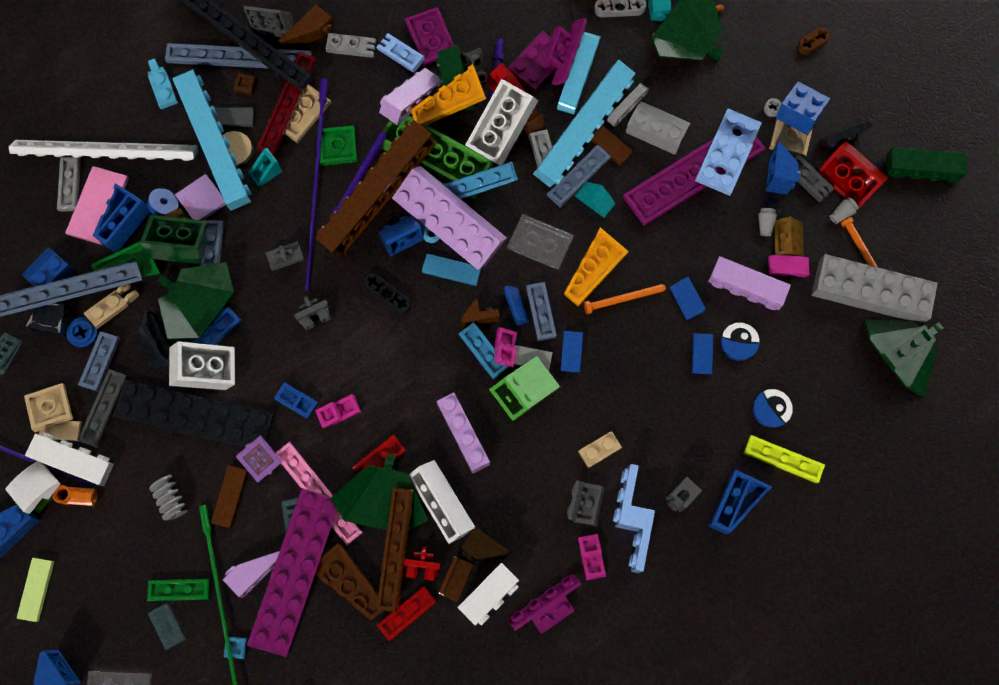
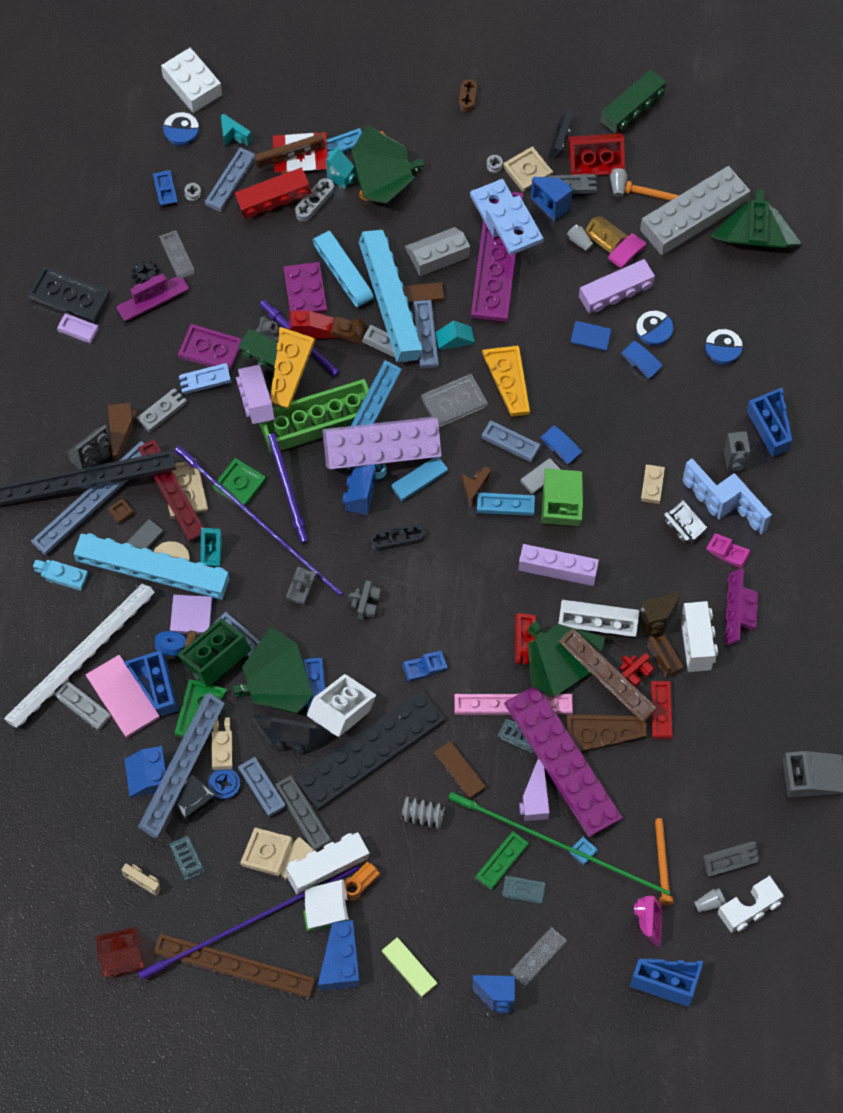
camera: 50 degrees left, 10 degrees down
(259, 459) = (449, 724): piece -> none
(338, 411) = (461, 641): dark pink slope -> none
(376, 189) = (314, 473): reddish brown brick -> none
(501, 122) = (339, 347): white brick -> none
(505, 347) = (513, 484): dark pink slope -> none
(516, 305) = (489, 456): blue slope -> none
(563, 49) = (318, 262): magenta bracket -> none
(622, 298) = (537, 405): orange bar -> none
(627, 105) = (401, 256): light grey beam -> none
(784, 459) = (767, 369): neon yellow tile -> none
(802, 108) = (516, 143): blue brick -> none

